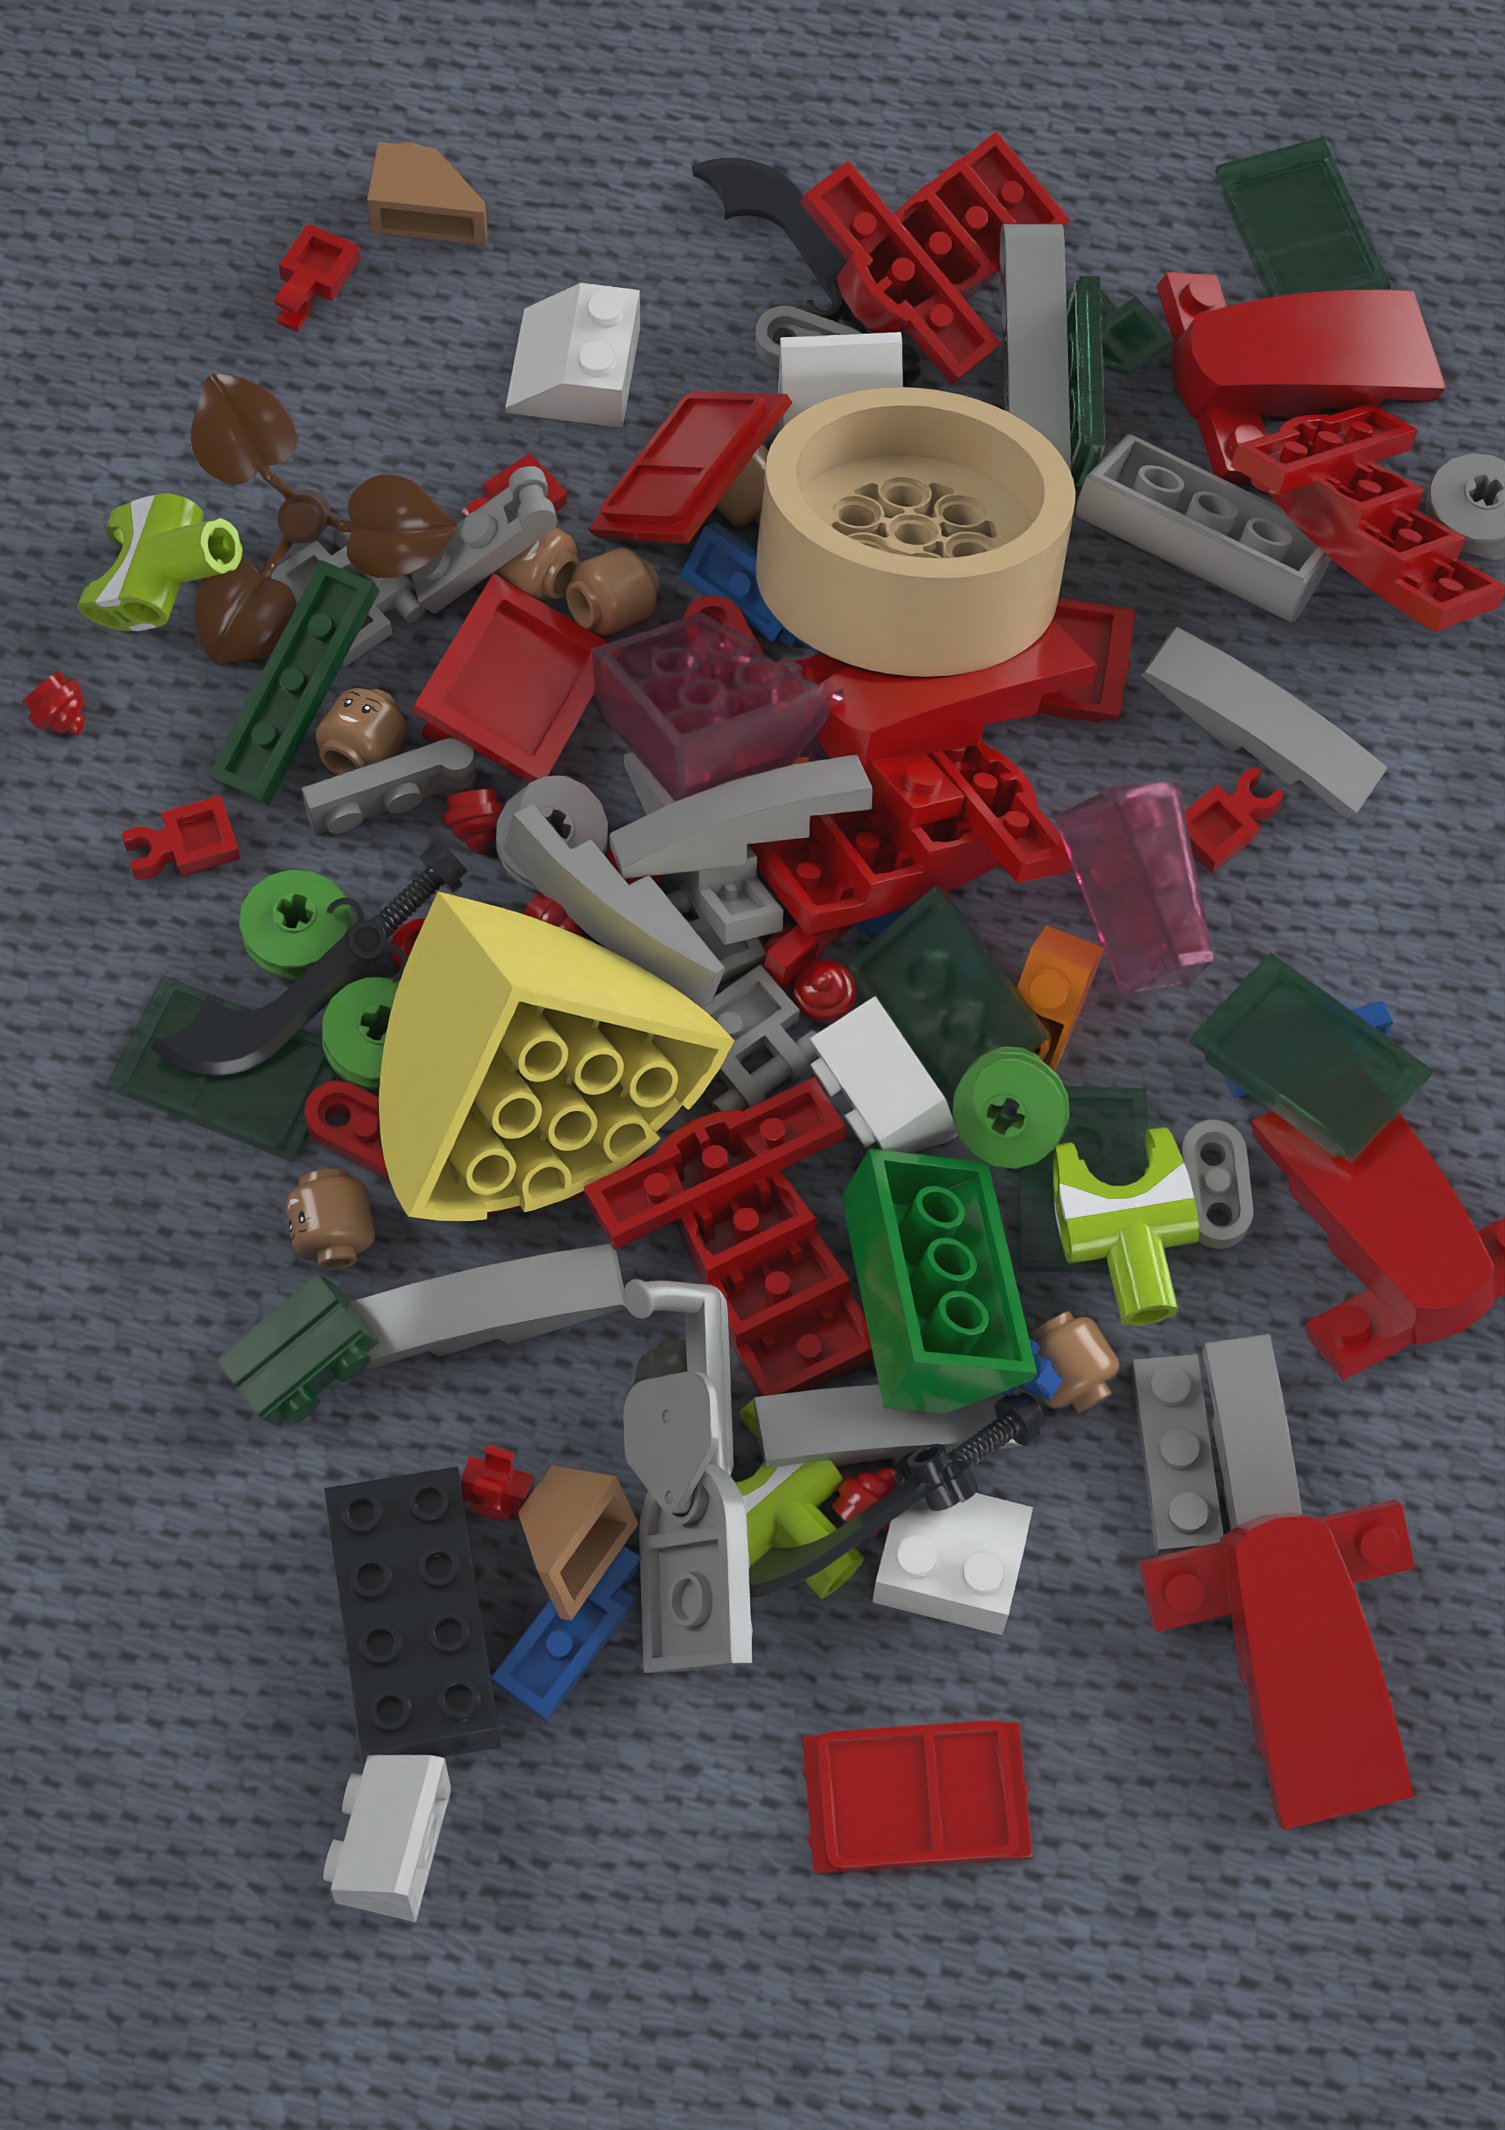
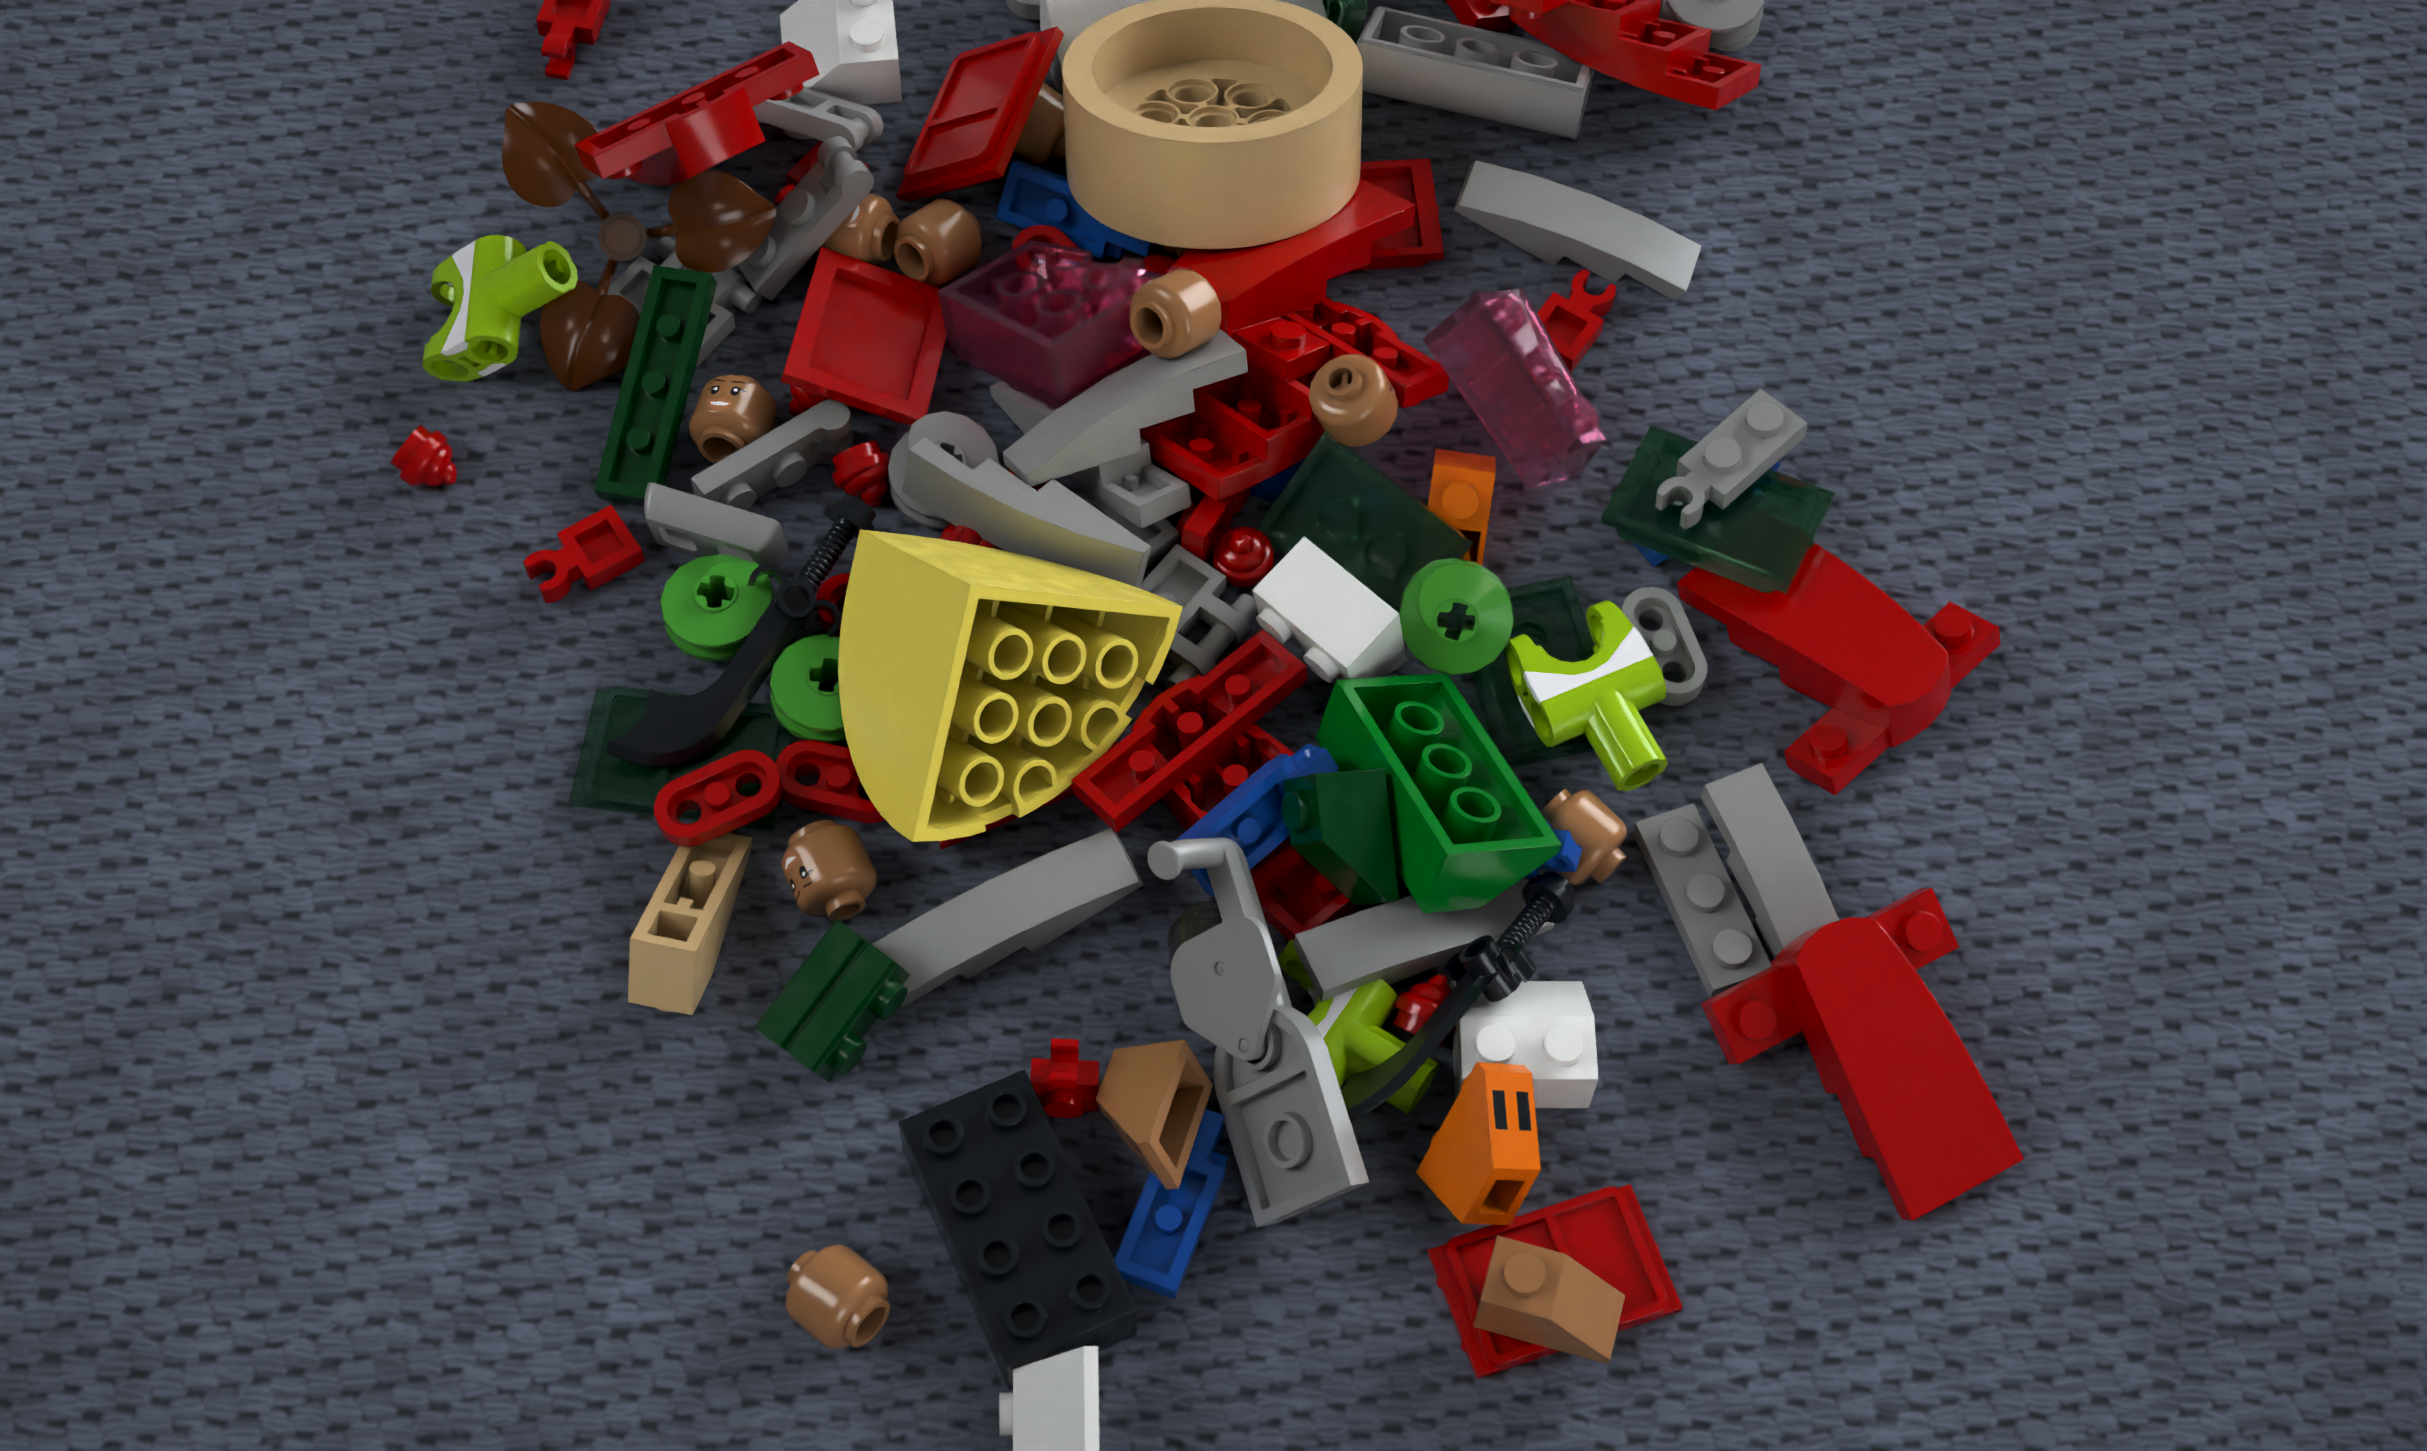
camera: 15 degrees left, 5 degrees down
(184, 1234) = (686, 924): none -> tan slope
(226, 1641) = (837, 1297): none -> medium nougat head
(244, 1118) = (716, 795): none -> red plate
(311, 845) = (712, 527): none -> light grey piece
(392, 430) = (699, 124): none -> red slope
(511, 419) = (820, 117): none -> light grey plate
(763, 1260) = (1254, 809): none -> blue hinge
(811, 734) = (1175, 313): none -> medium nougat head
(831, 1304) = (1345, 831): none -> dark green slope
(880, 1654) = (1486, 1146): none -> orange slope
(897, 1820) = (1548, 1301): none -> medium nougat slope
(965, 864) = (1353, 400): none -> medium nougat head
(1339, 1007) = (1732, 456): none -> light grey plate

